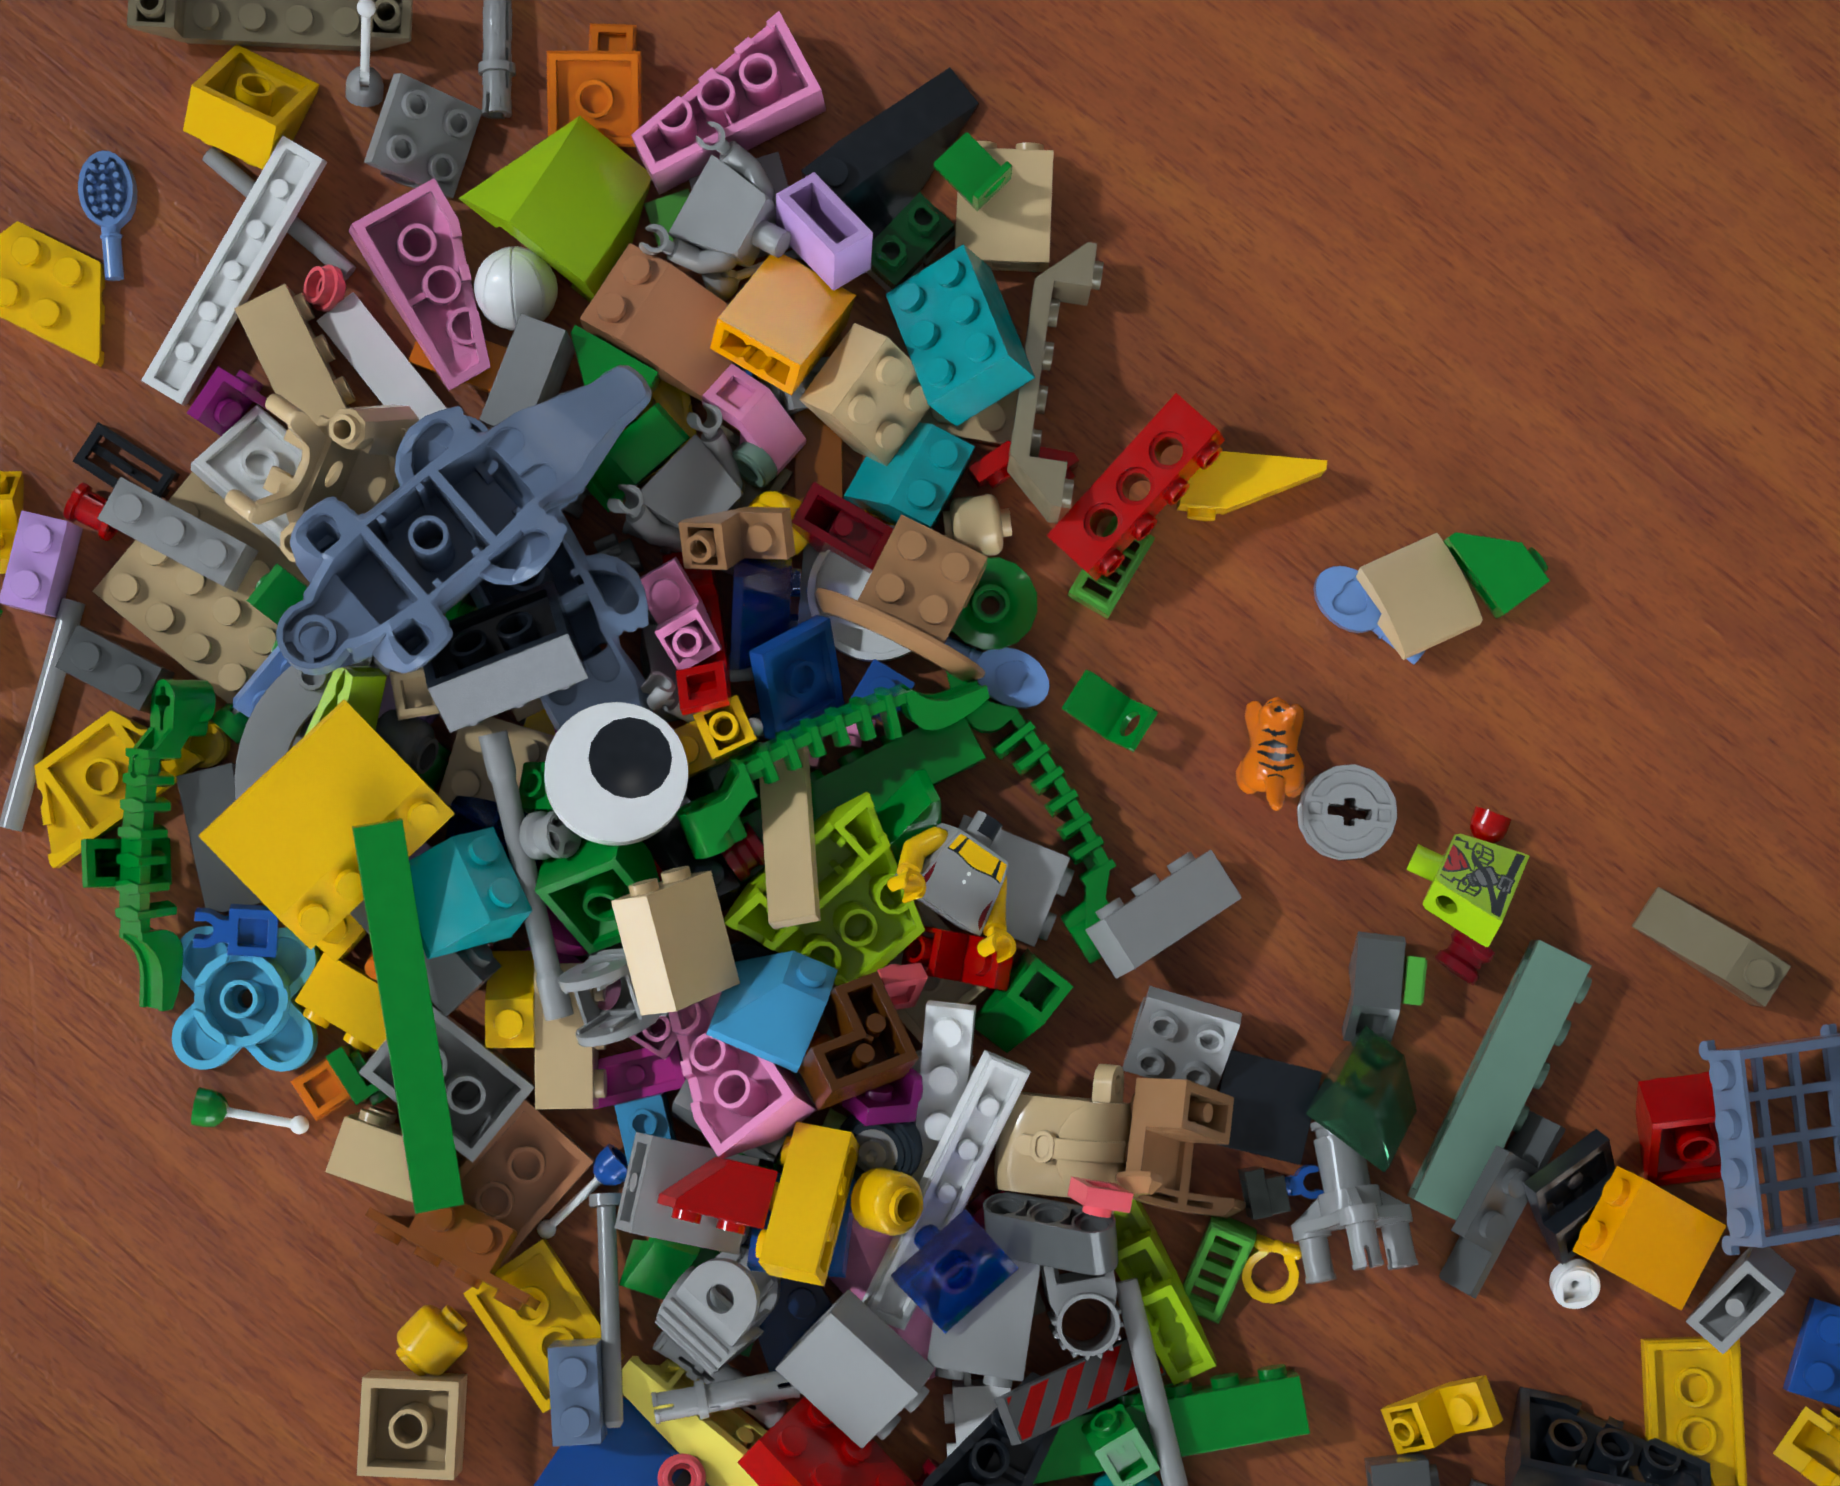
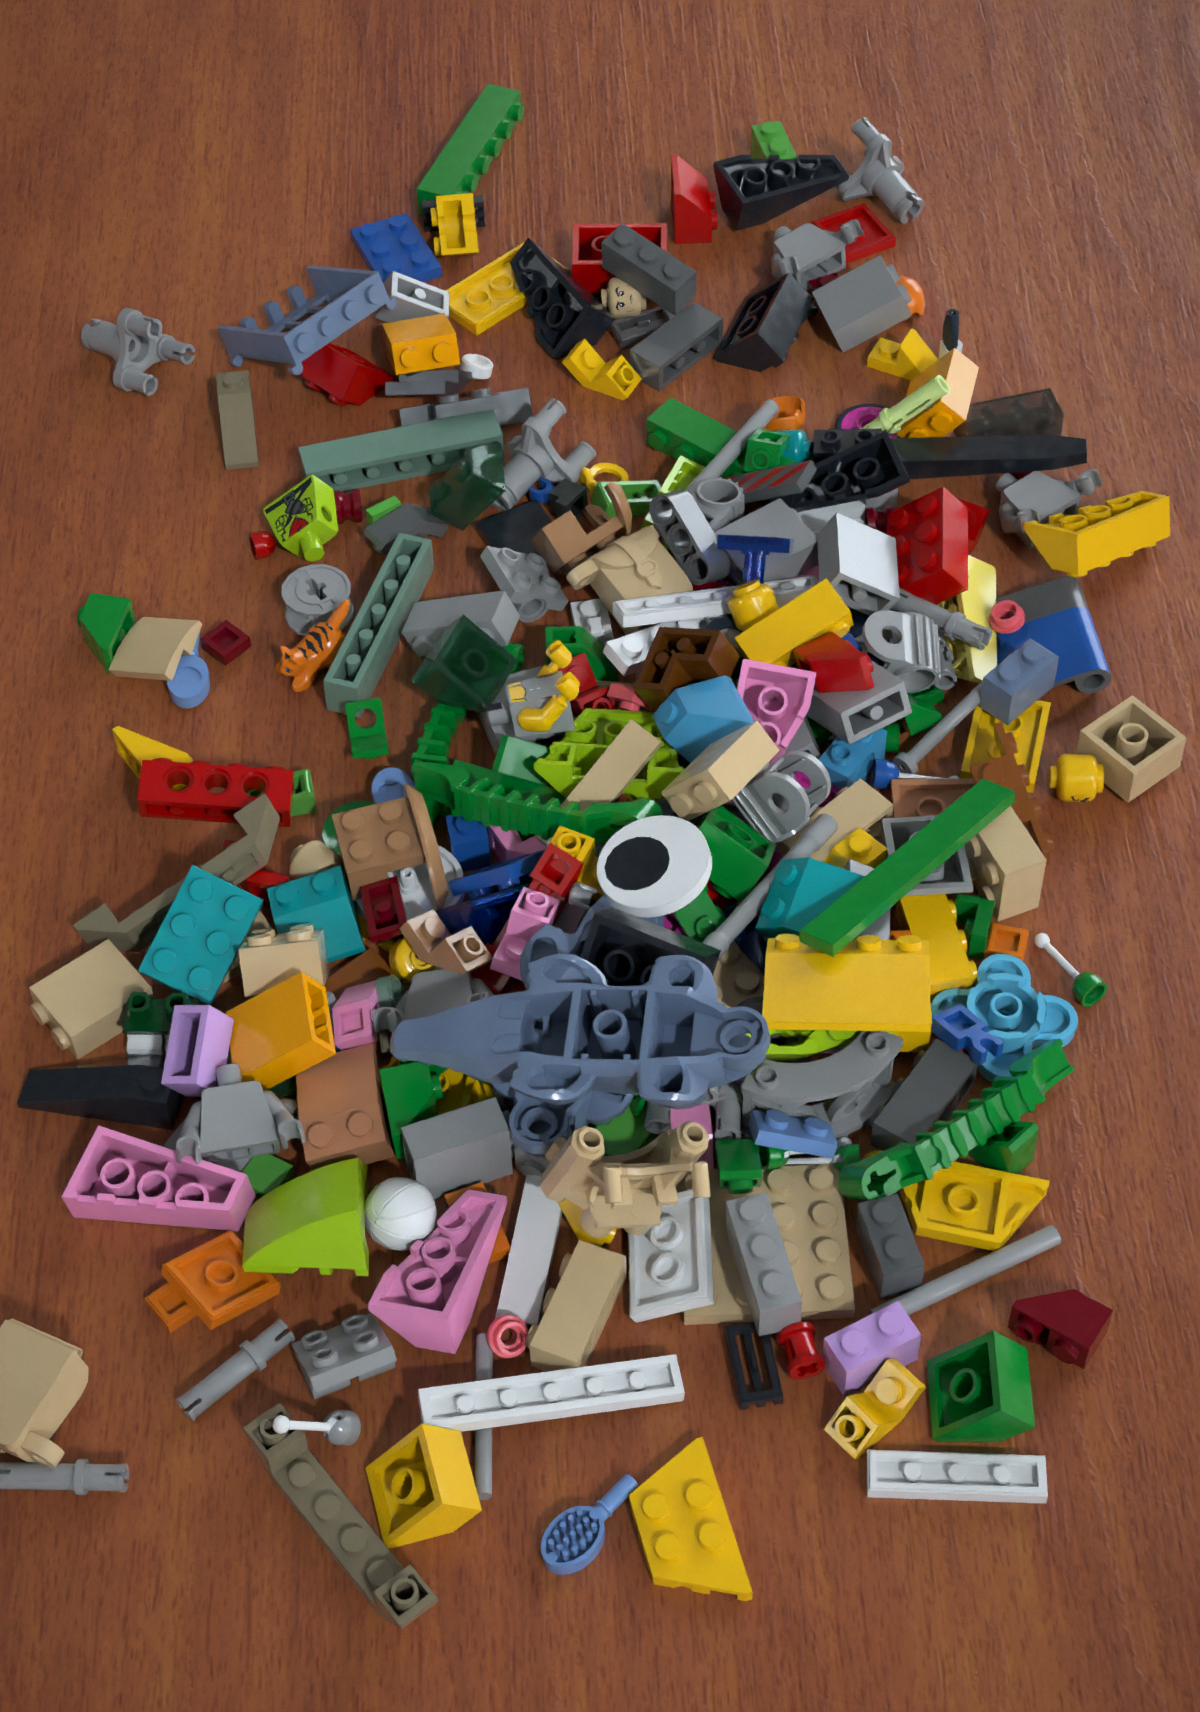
camera: 135 degrees left, 35 degrees down
(226, 400) = (651, 1326): magenta bracket -> none
(546, 836) = (727, 887): light grey wheel -> none
(973, 171) = (83, 1000): green bracket -> none
(1059, 1061) = (593, 617): none -> white hinge
(1084, 855) = (464, 667): none -> clear green slope
(1100, 1197) = (644, 514): coral plate -> none
(1247, 842) = (379, 623): none -> sand green brick
(1371, 676) = (225, 642): none -> dark red plate

